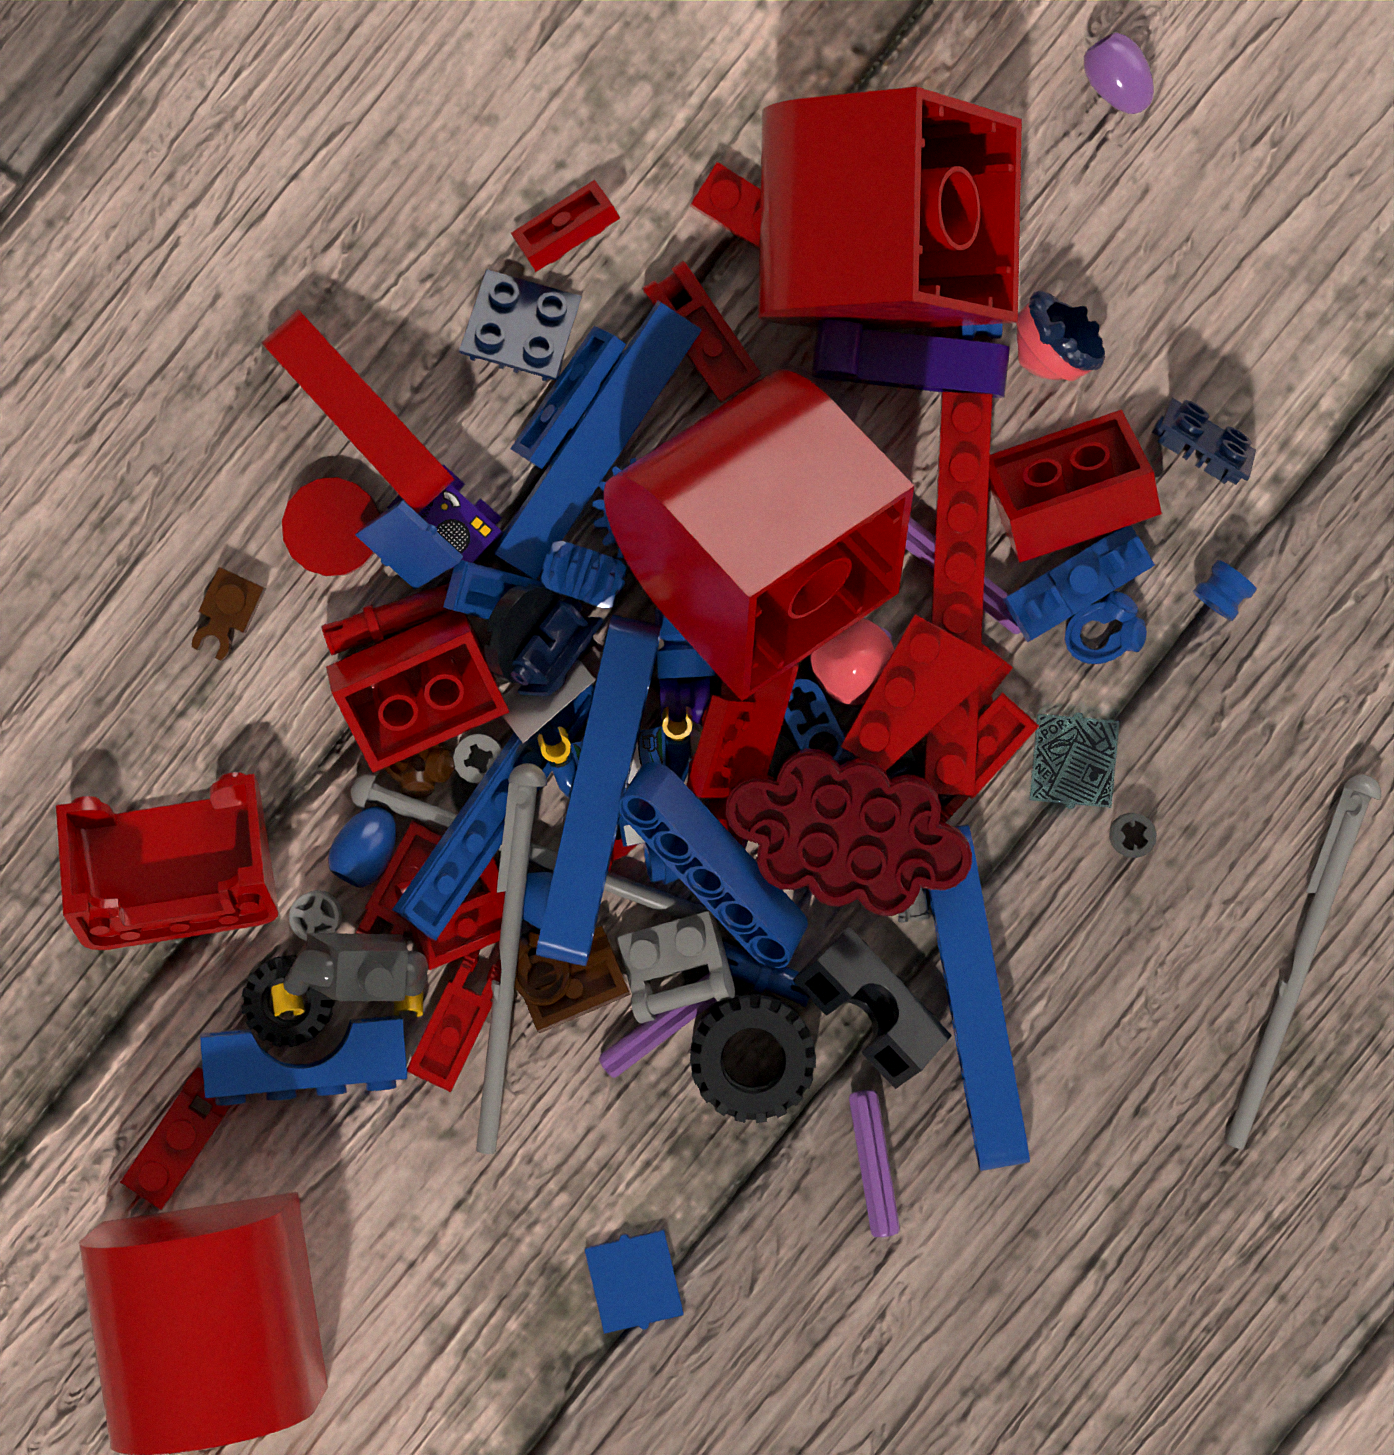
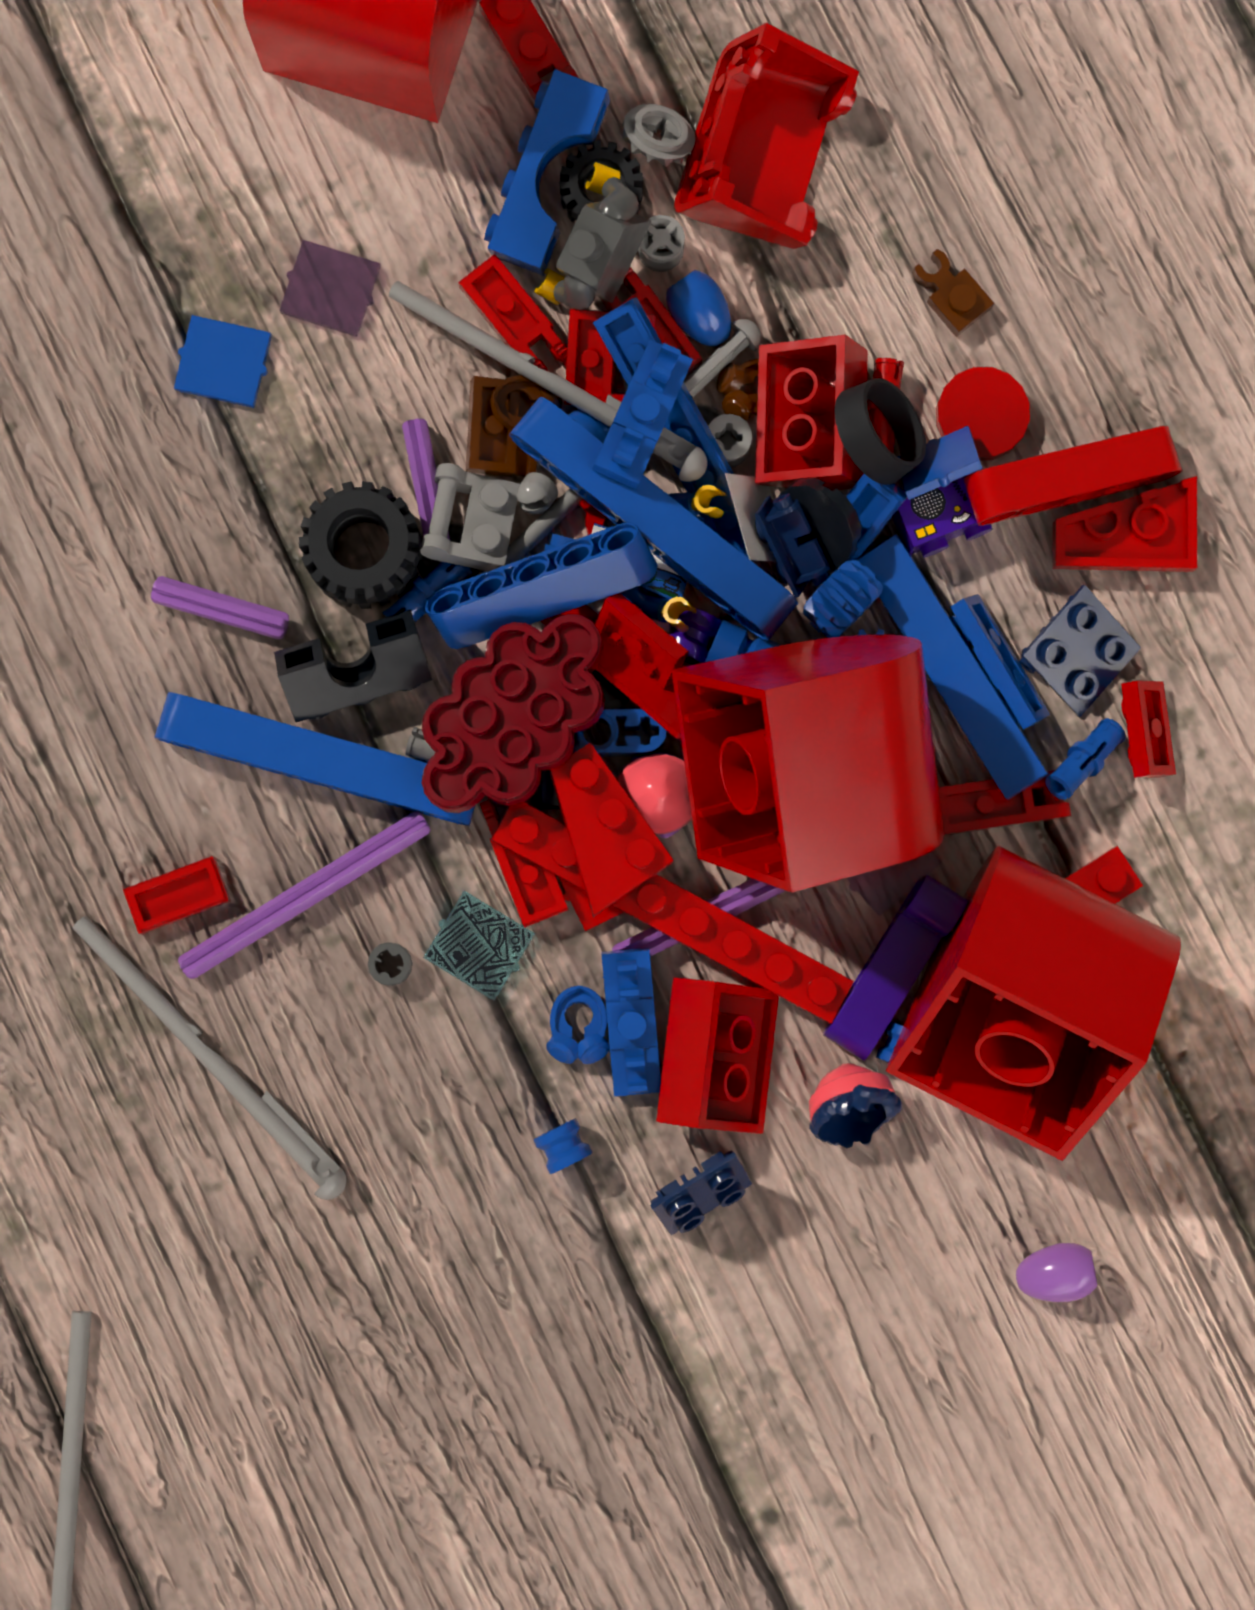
camera: 115 degrees right, 5 degrees down
(202, 952) = (676, 133): none -> light grey gear
(381, 328) = (1133, 534): none -> red wing
(428, 634) = (862, 440): none -> black tyre
(507, 847) = (642, 414): none -> blue plate
(512, 1214) = (330, 288): none -> clear purple piece
(620, 916) = (536, 493): none -> light grey hinge
(624, 272) = (1085, 759): none -> blue pin
(1107, 948) = (304, 895): none -> medium lavender axle
(1164, 1067) = (176, 895): none -> red tile

